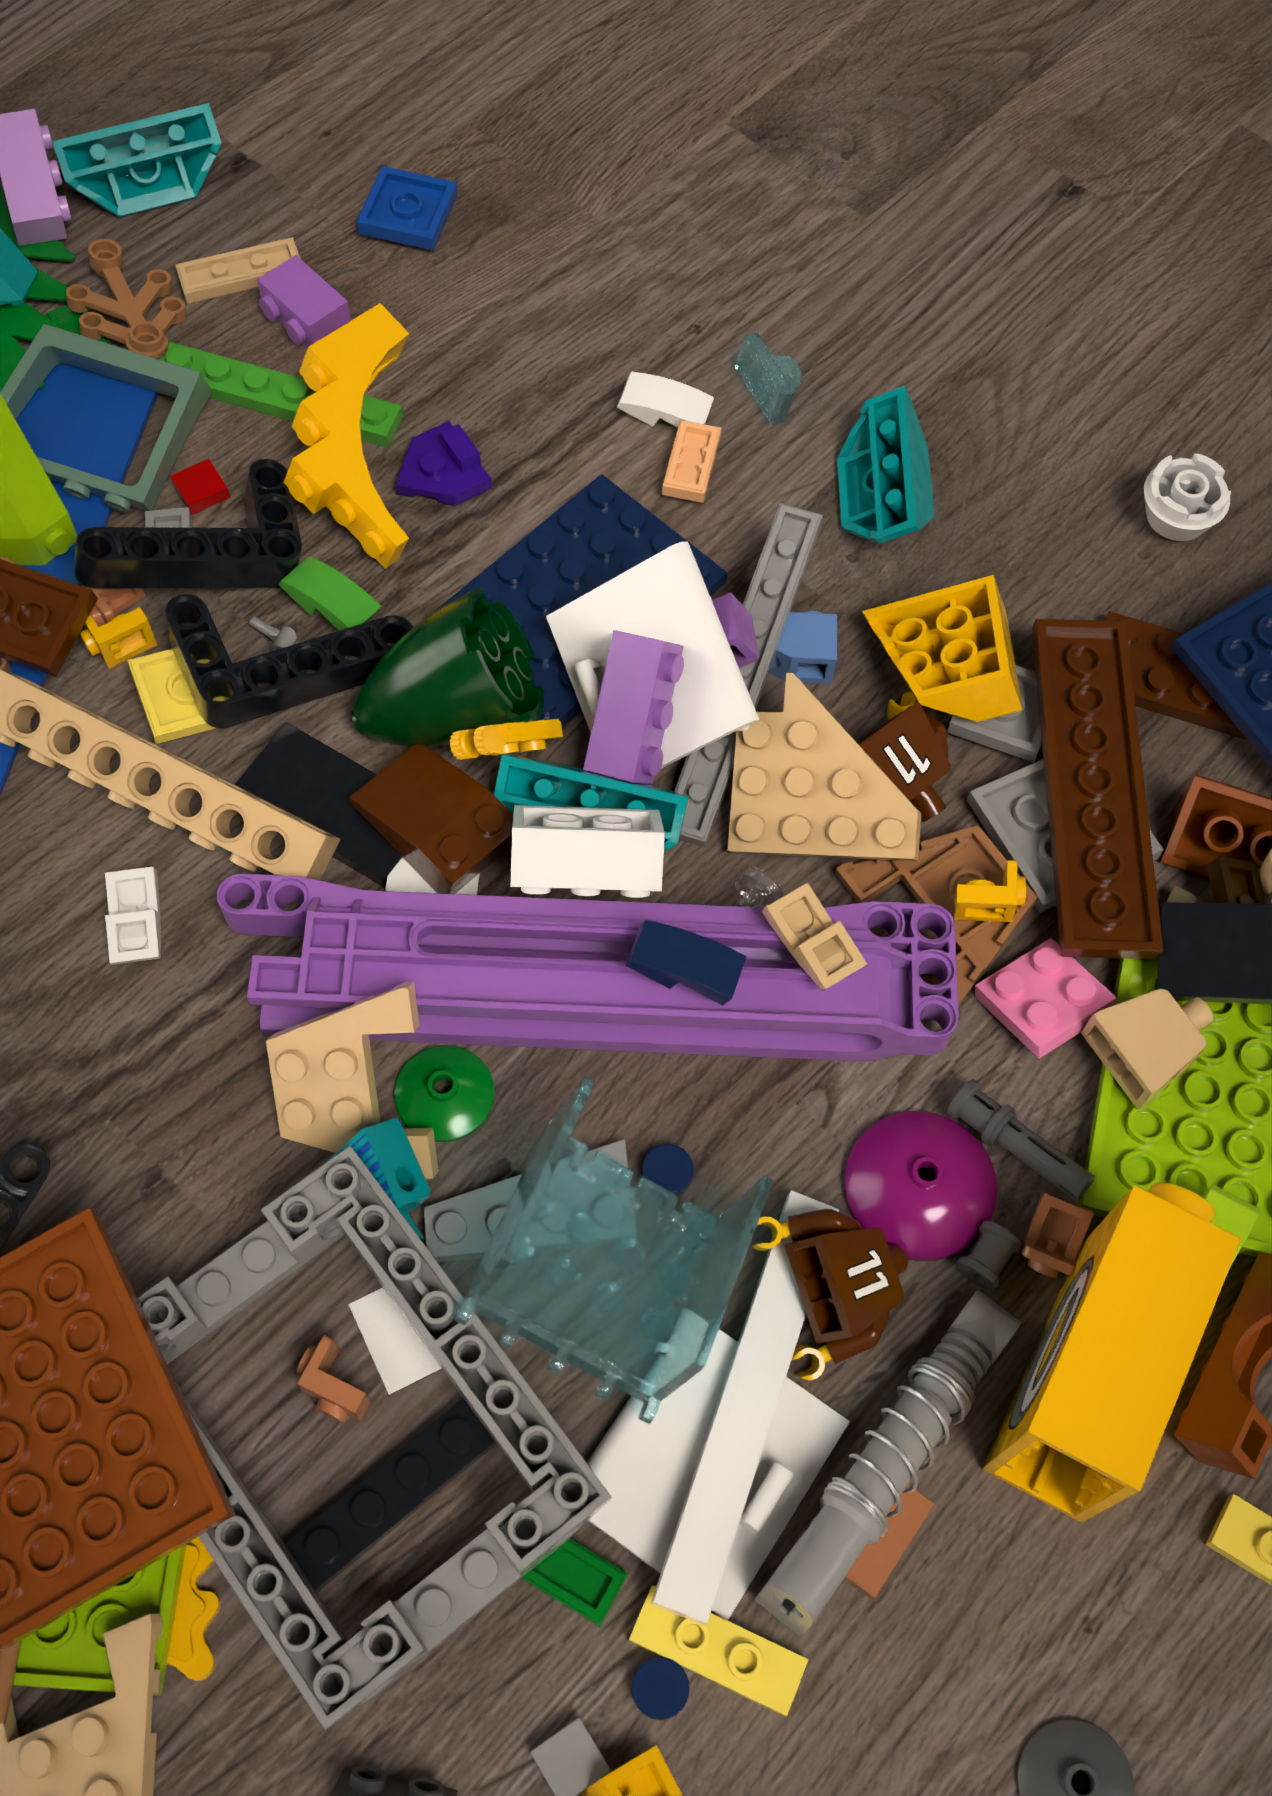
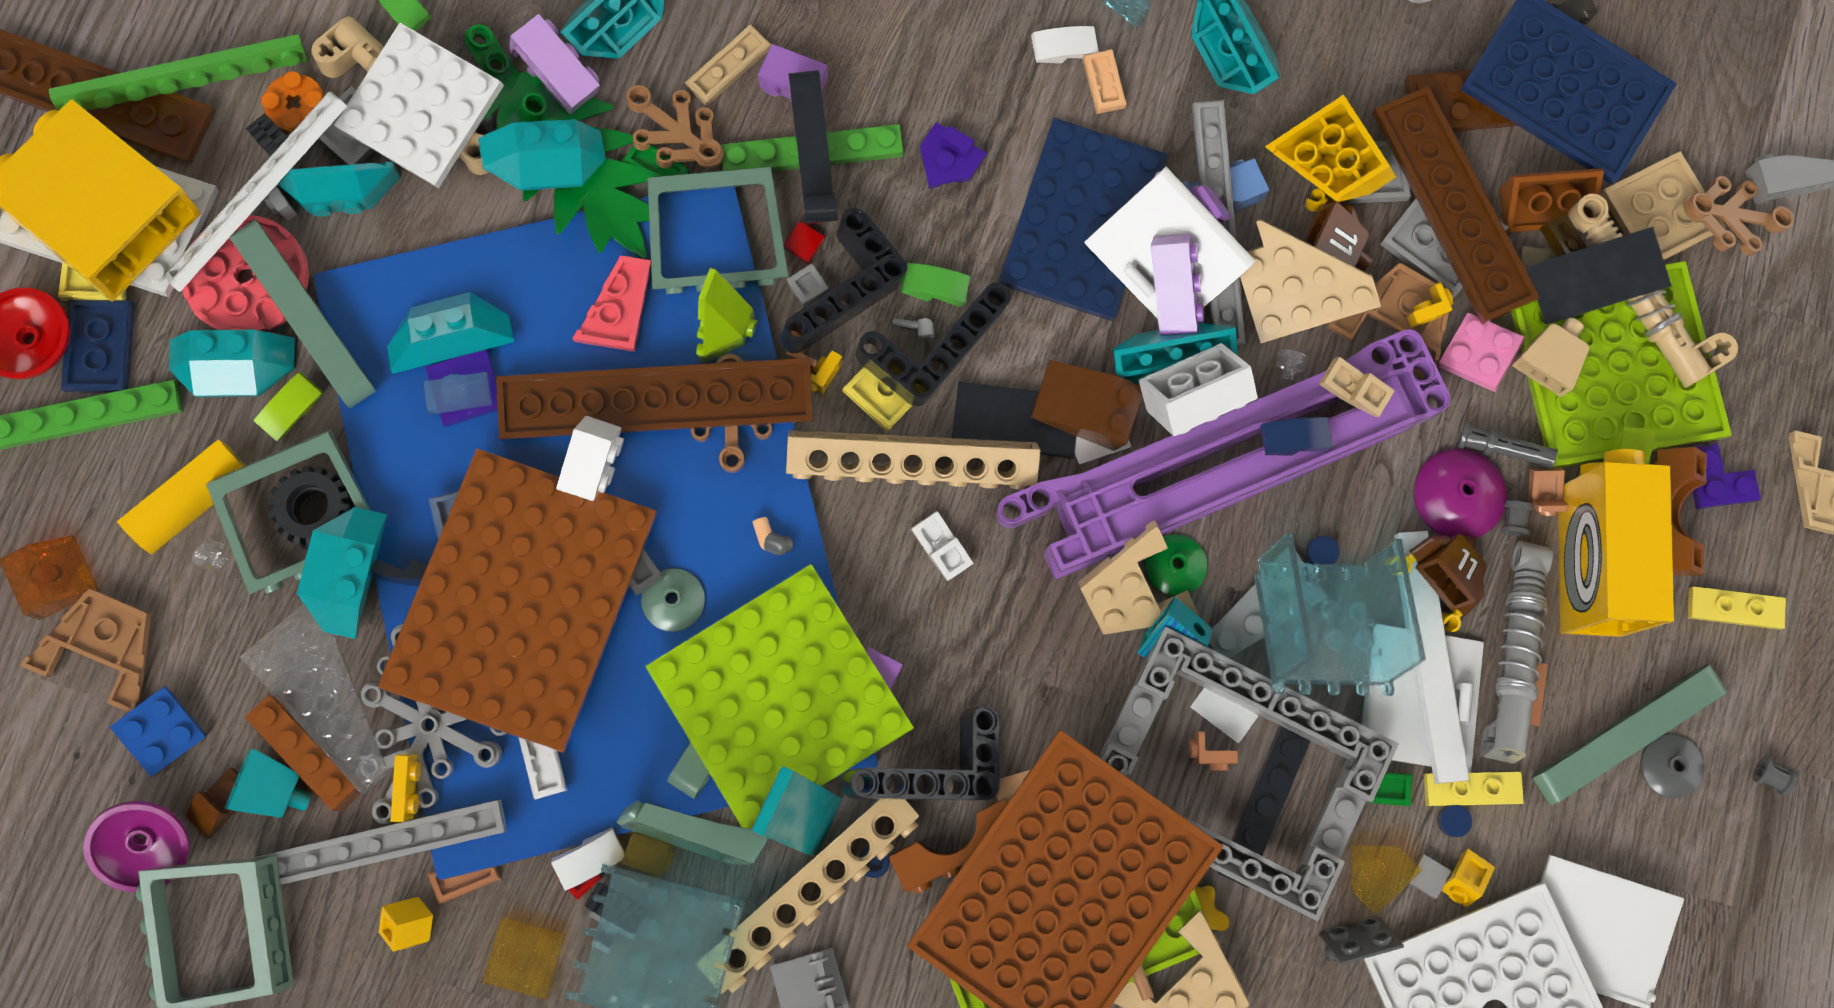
camera: 30 degrees left, 15 degrees up
(248, 427) = (812, 147): none -> black beam
(329, 422) = (877, 167): yellow arch -> none
(451, 675) = (1055, 316): dark green cylinder -> none
(490, 1715) = (1380, 874): none -> clear yellow plate
(504, 738) = (1105, 336): yellow hinge -> none
(1019, 1685) = (1629, 734): none -> sand green beam

